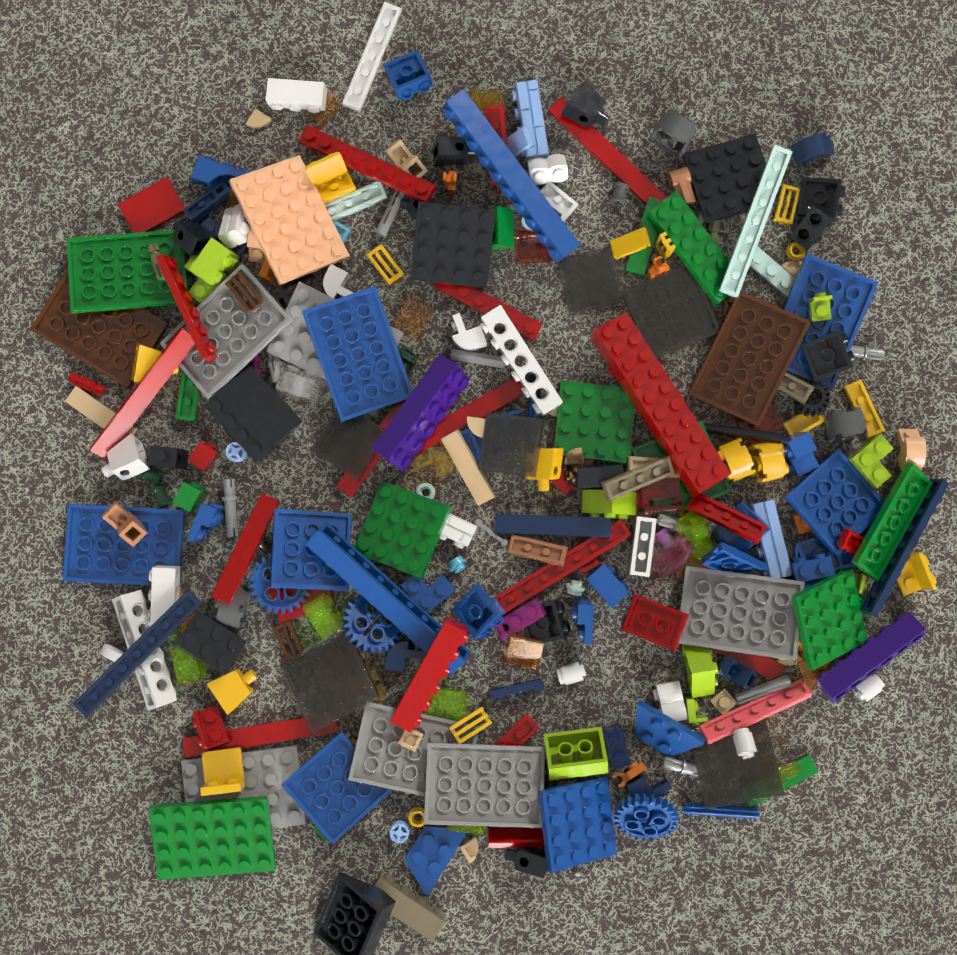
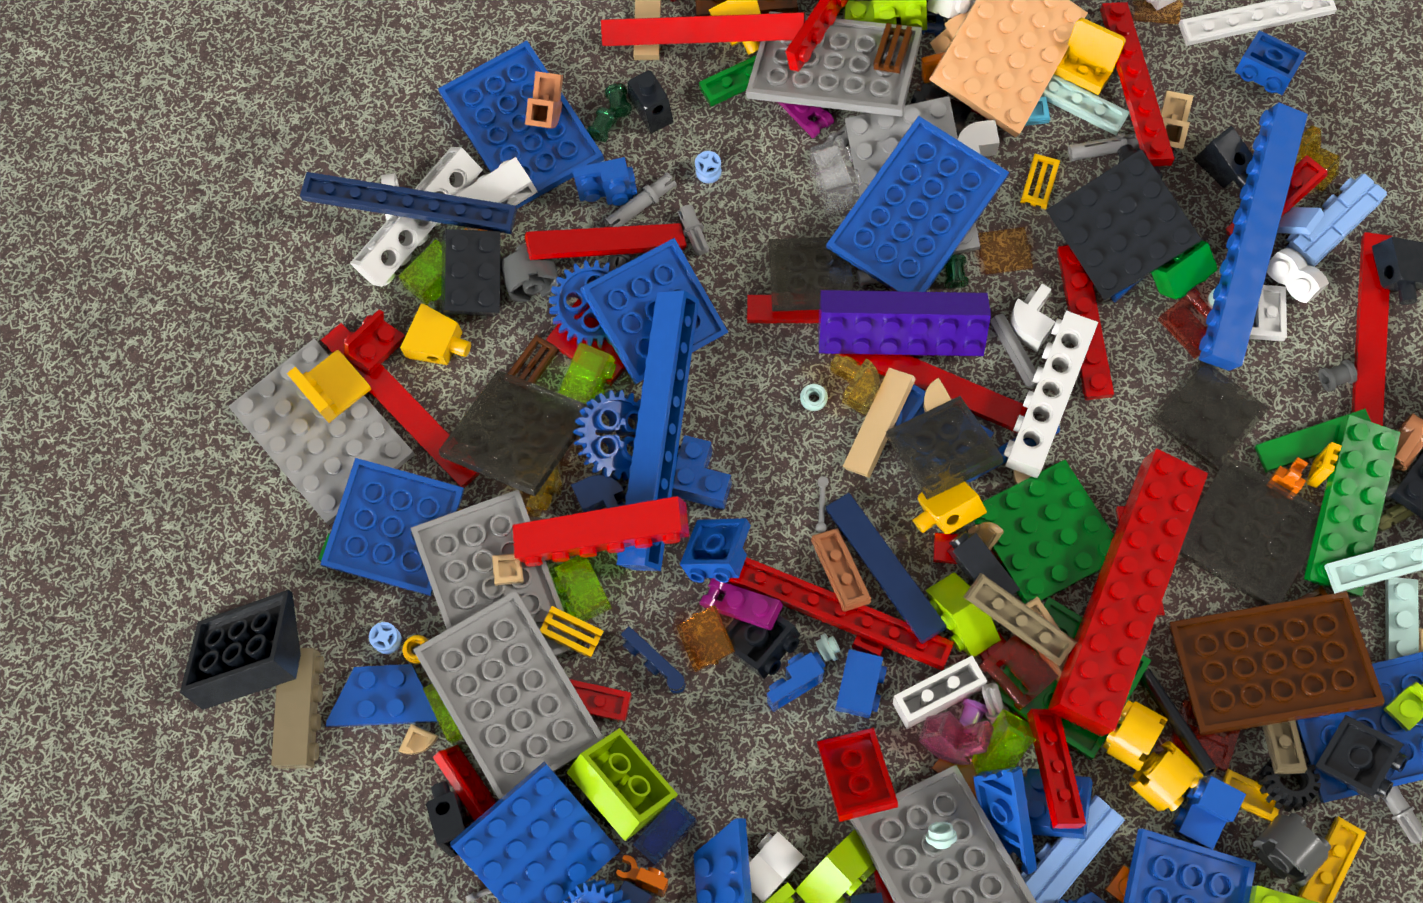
camera: 65 degrees right, 15 degrees down
(126, 459) = (617, 61): white torso -> none
(191, 496) = (625, 142): green brick -> none
(203, 455) = (678, 136): red brick -> none
(212, 837) = (245, 429): green plate -> none
(253, 414) = (763, 154): black slope -> none
(271, 489) = (693, 229): none -> light grey axle
(402, 529) = (751, 396): green plate -> none
(450, 182) = (1191, 183): orange plate -> none
(457, 564) = (754, 488): medium azure plate -> none
(458, 531) = (795, 457): white brick -> none
(571, 673) = (718, 715): white brick -> none
(630, 243) = (1292, 426): yellow tile -> none
(720, 604) = (941, 835): none -> light aqua plate

